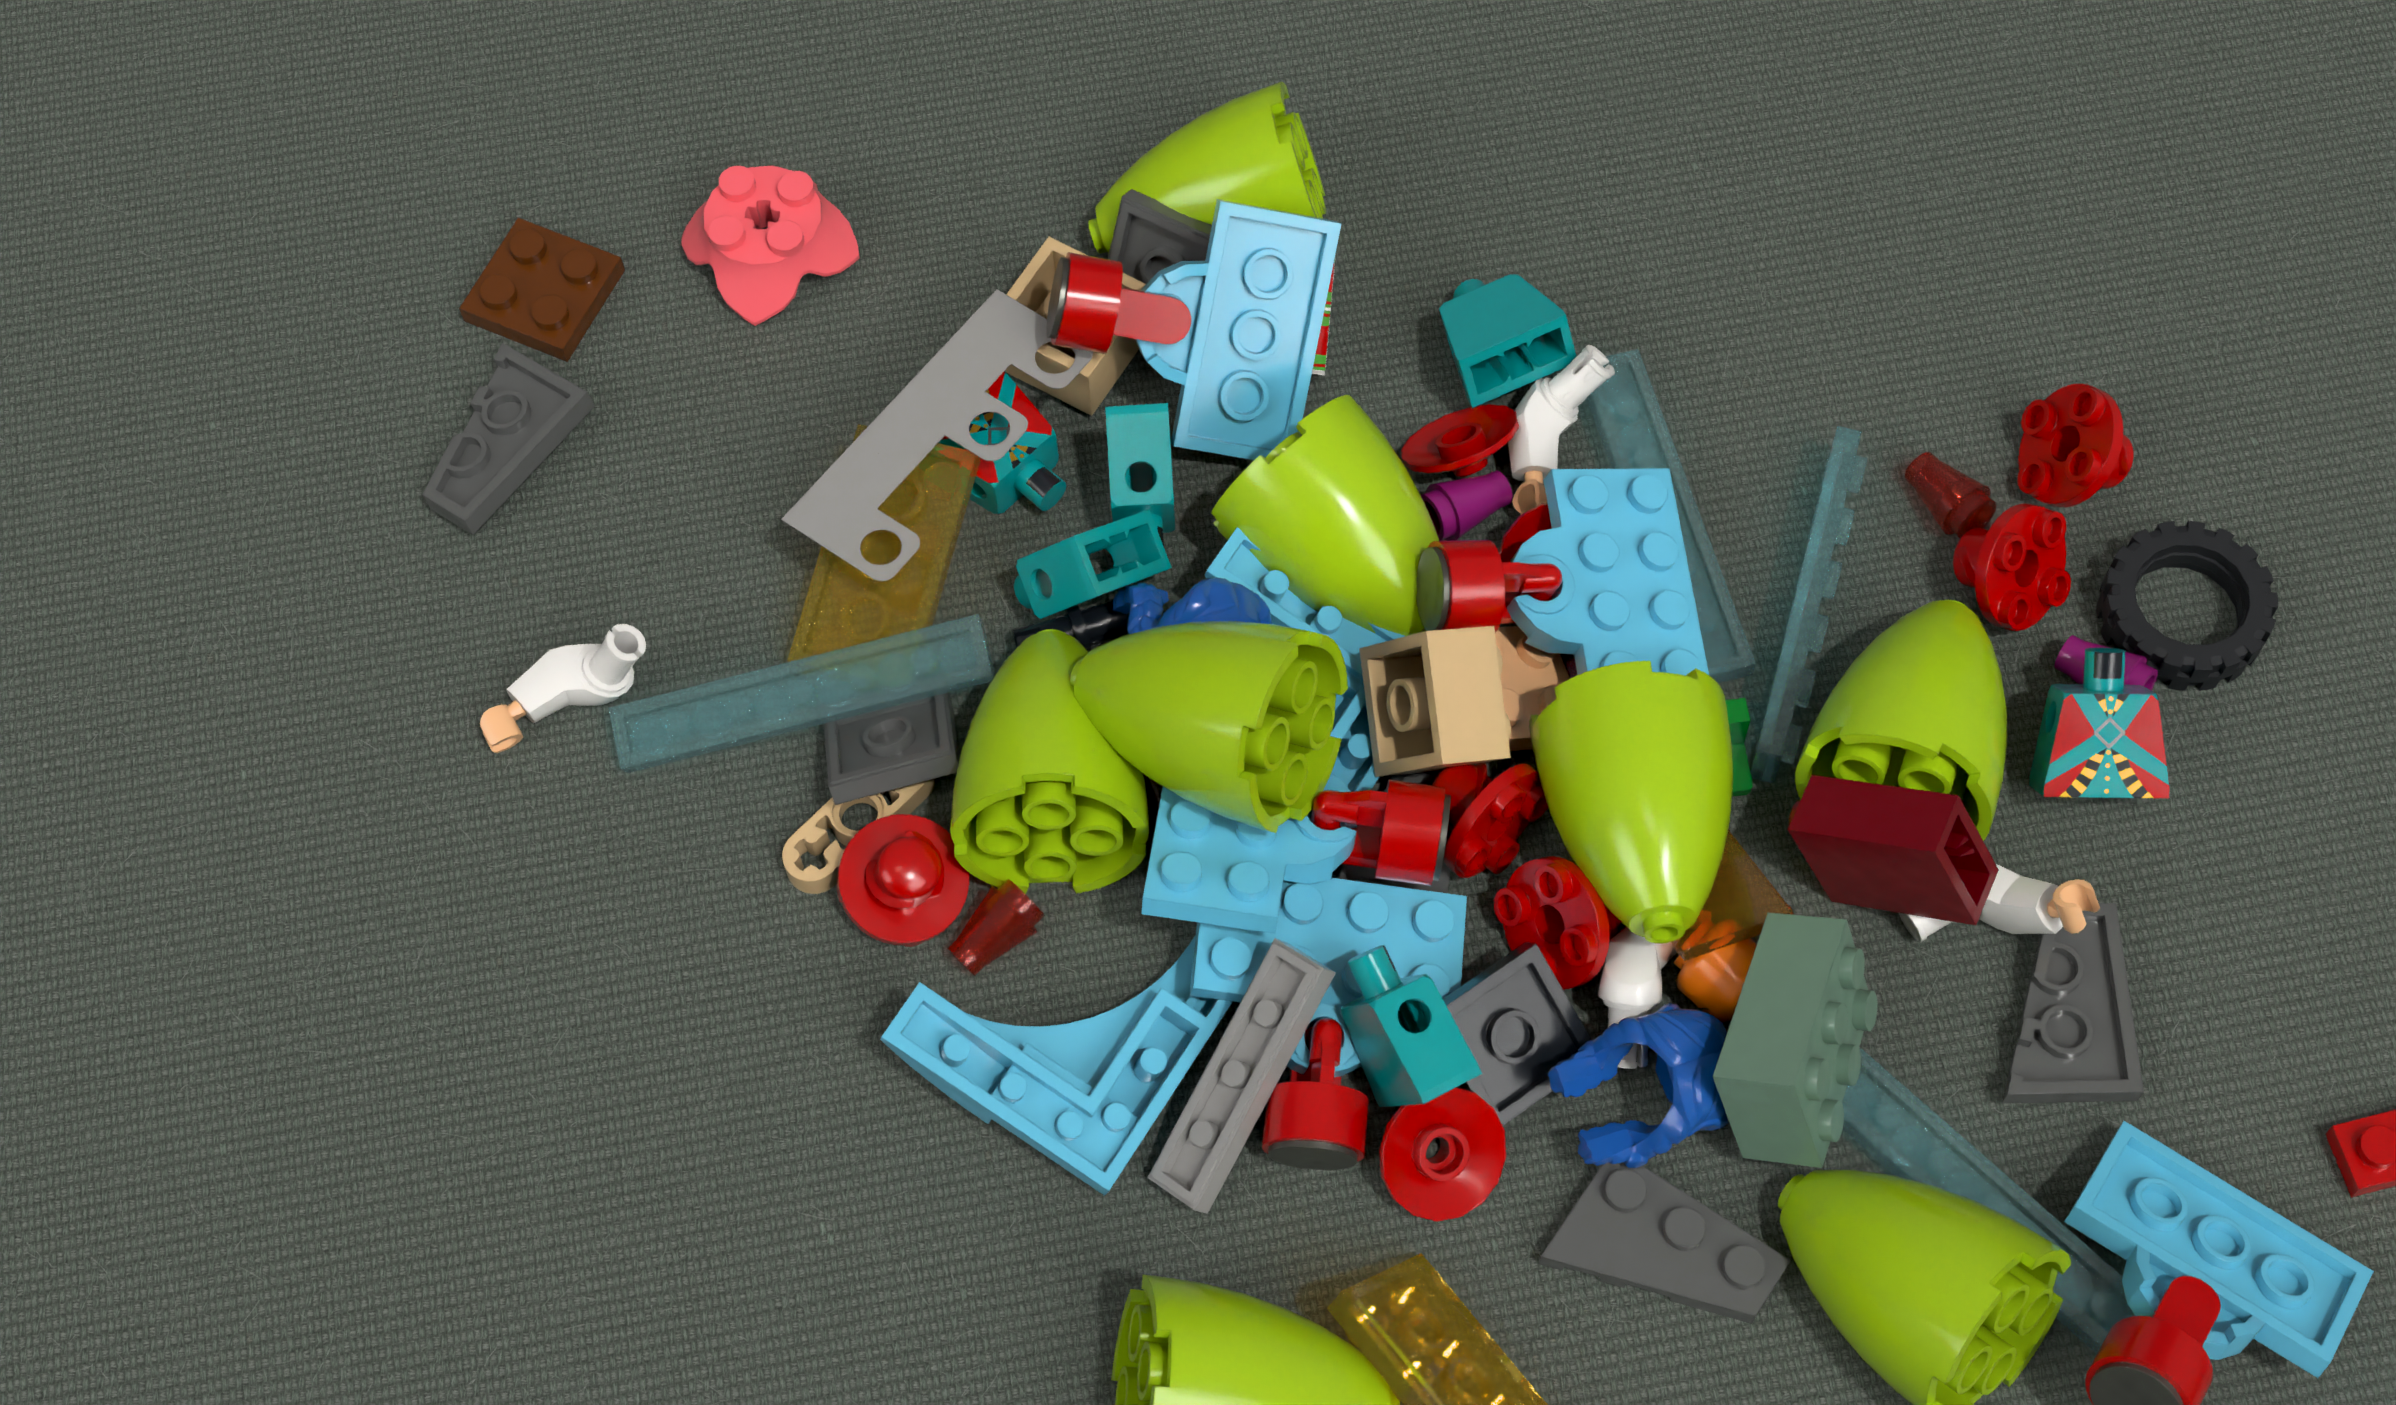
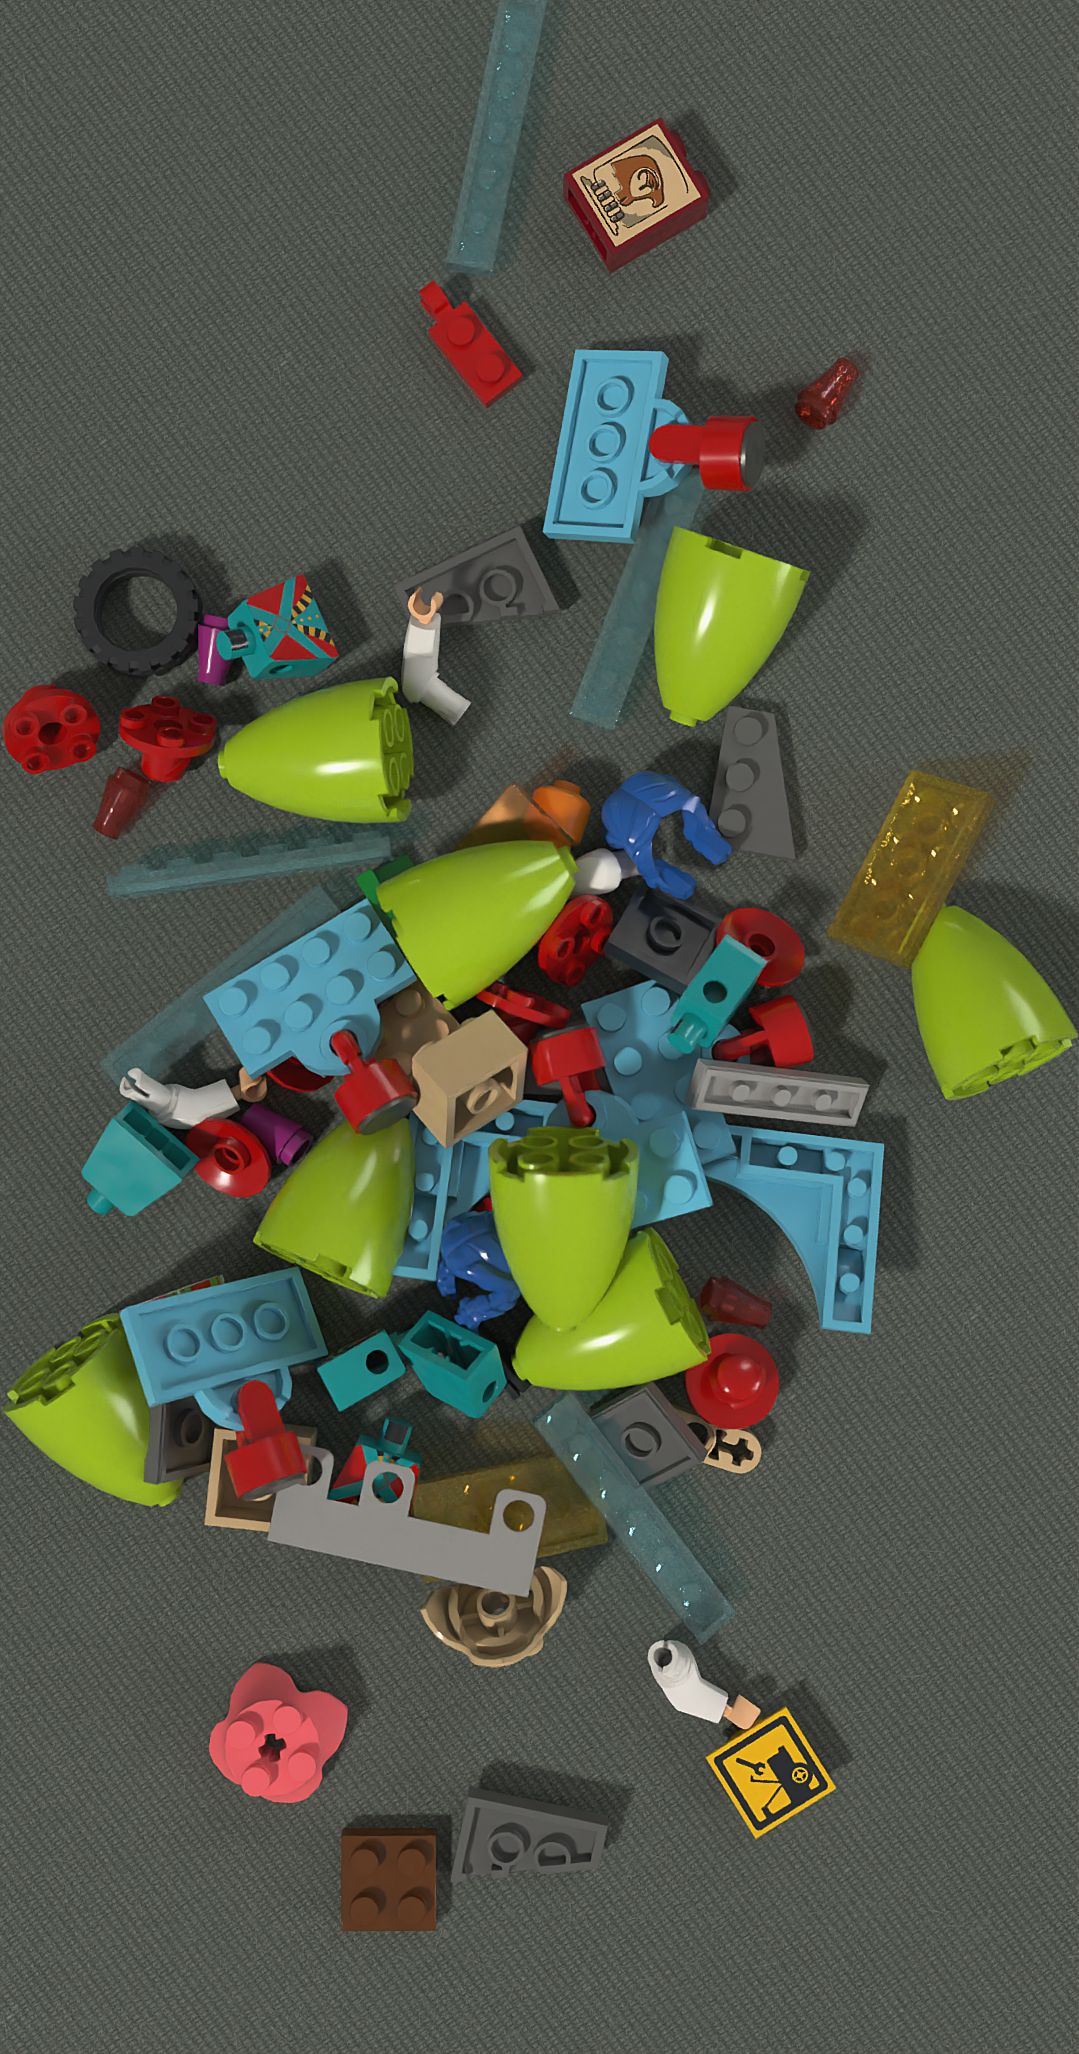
camera: 120 degrees left, 25 degrees up
(414, 725) = (770, 1771): none -> piece
(763, 479) = (466, 1621): none -> tan brick
(1795, 1040) = (598, 749): sand green brick -> none
(1893, 848) = (434, 736): dark red brick -> none

